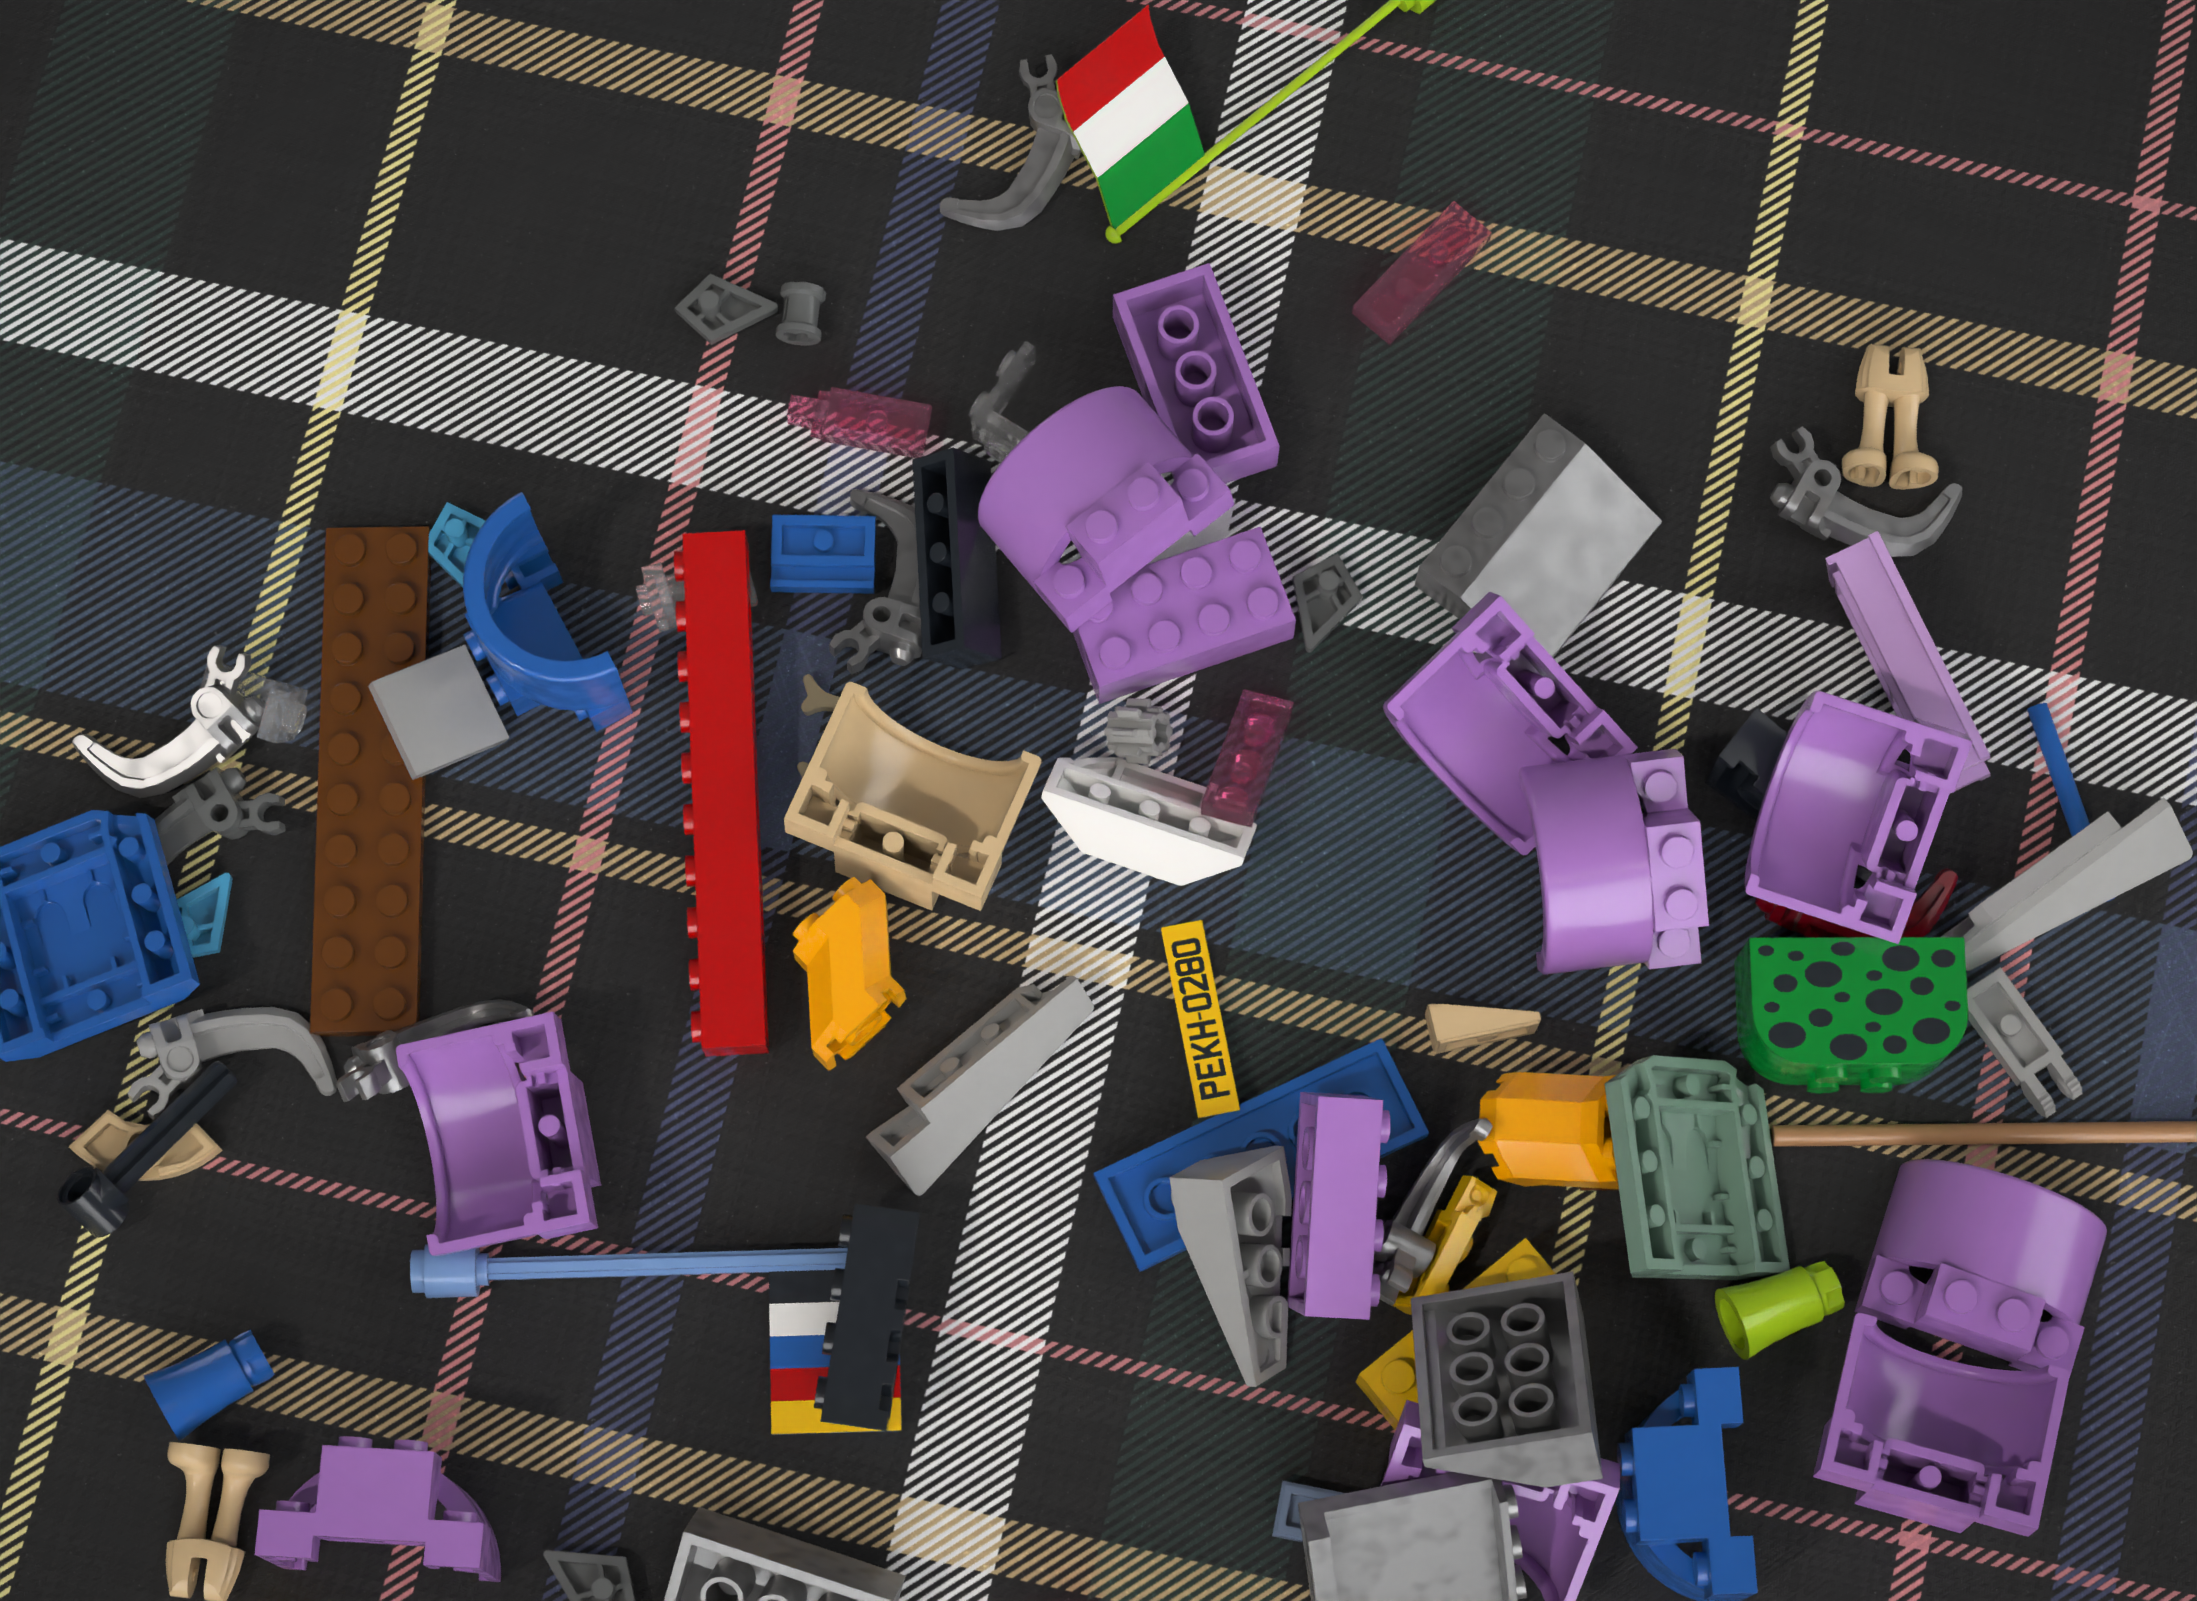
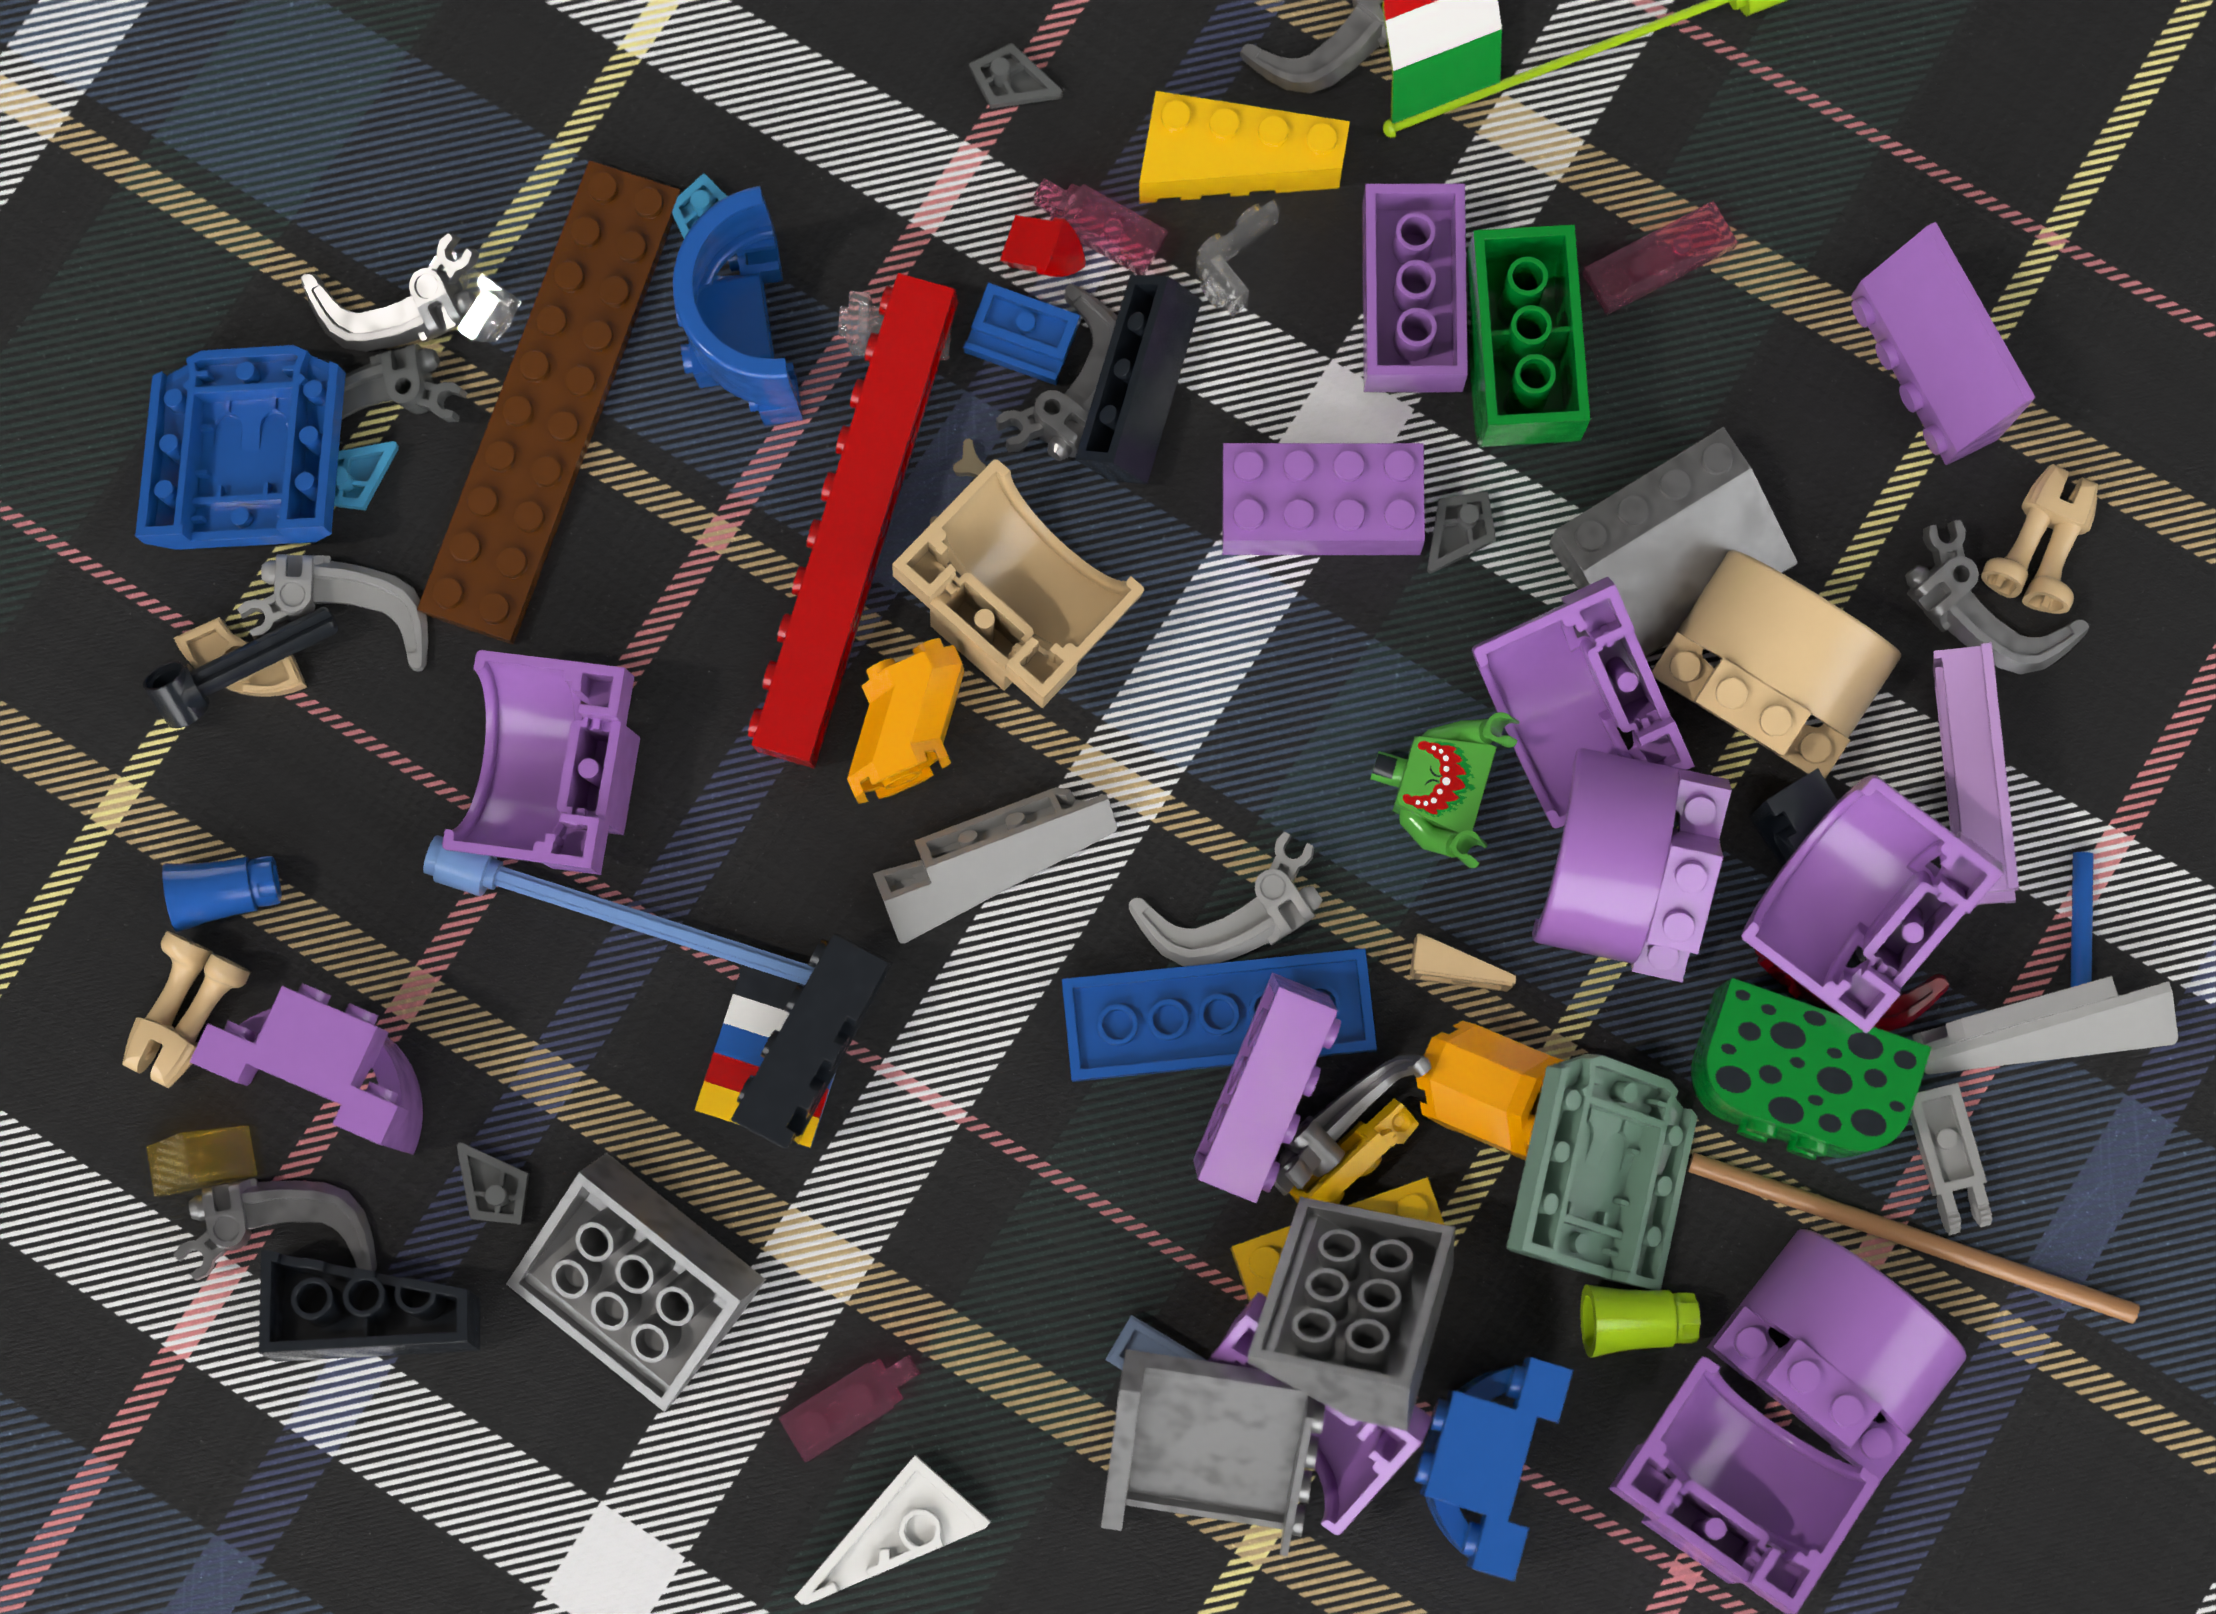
camera: 25 degrees right, 5 degrees up
(375, 1062) = (456, 659): flat silver piece -> none
(438, 712) = (628, 360): light grey tile -> none
(800, 313) = (1080, 106): dark grey bush -> none
(814, 462) = (1043, 247): none -> red tile
(972, 303) = (1237, 149): none -> yellow wedge
(1098, 483) = (1281, 354): medium lavender piece -> none
(1138, 731) = (1246, 592): light grey gear -> none
(1143, 819) = (1225, 674): white wedge -> none
(1200, 1019) = (1208, 873): yellow sticker -> none
(1233, 1232) = (1164, 1080): light grey wedge -> none
(1247, 758) = (1334, 651): clear pink plate -> none
(1275, 1042) = (1264, 920): none -> light grey piece
(1324, 390) = (1526, 336): none -> green brick
(1400, 849) = (1445, 783): none -> bright green torso
(1683, 621) = (1780, 662): none -> tan piece
(1724, 267) = (1941, 347): none -> medium lavender slope

